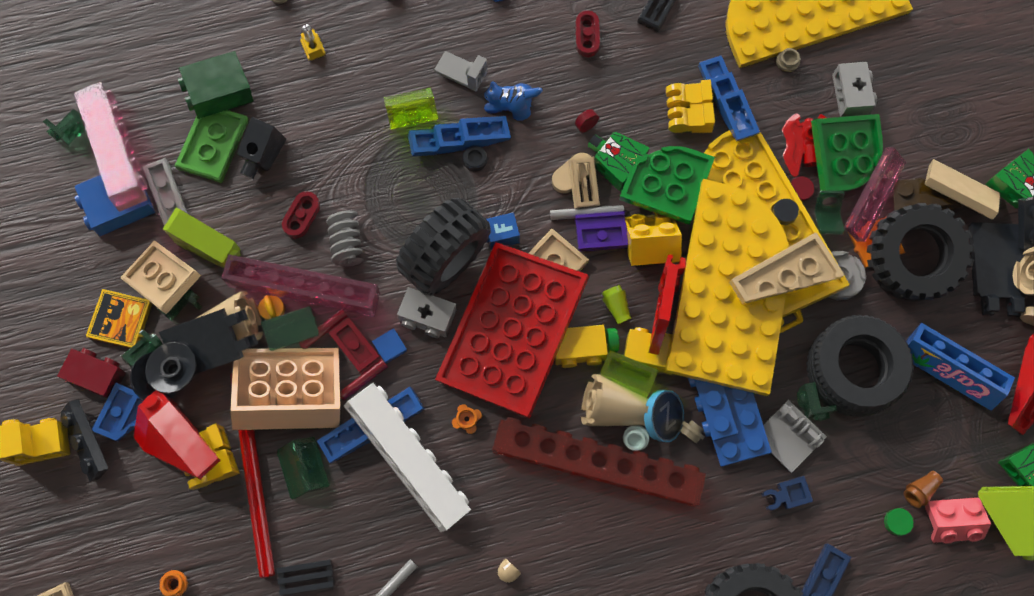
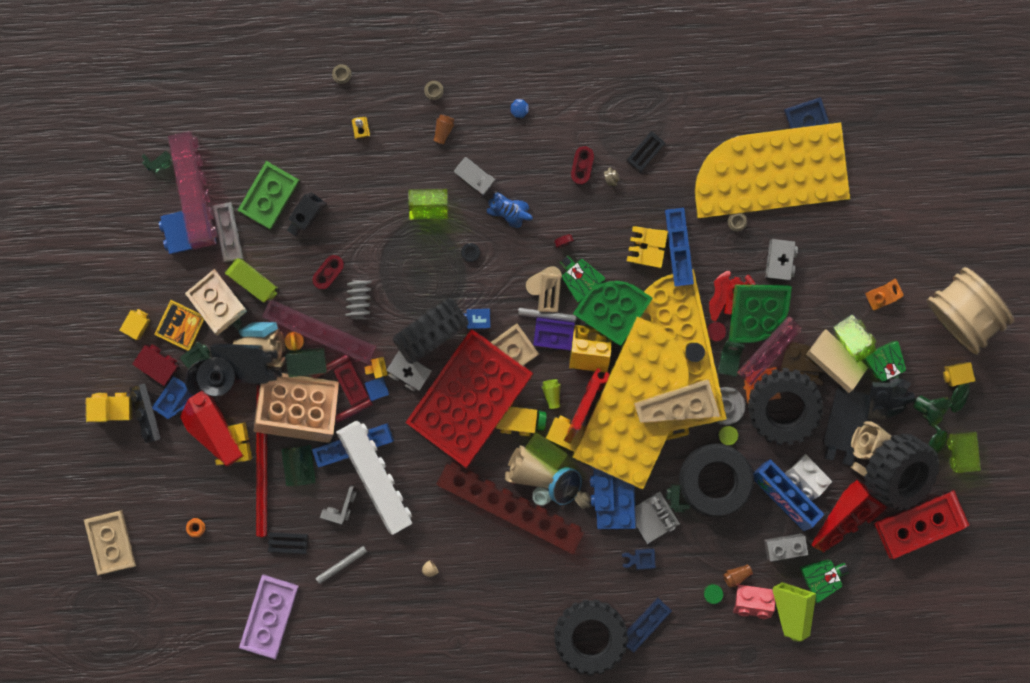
camera: 15 degrees right, 15 degrees up
(58, 327) = (135, 324): none -> yellow brick
(215, 85) = (278, 151): dark green brick -> none
(219, 296) = (258, 329): none -> medium azure tile
(359, 522) = (332, 514): none -> light grey bracket
(384, 318) = (378, 368): none -> yellow tile
(412, 23) = (443, 128): none -> dark orange cone
(459, 136) = (462, 232): blue slope -> none
(464, 411) = (422, 450): orange plate -> none
(626, 39) = (611, 177): none -> dark tan plate
(853, 306) = (728, 435): none -> lime tile
(975, 338) = (808, 477): none -> white bracket
(976, 157) = (854, 338): none -> clear neon green piece
(976, 436) = (786, 547): none -> light grey brick
(988, 106) = (884, 295): none -> orange bracket

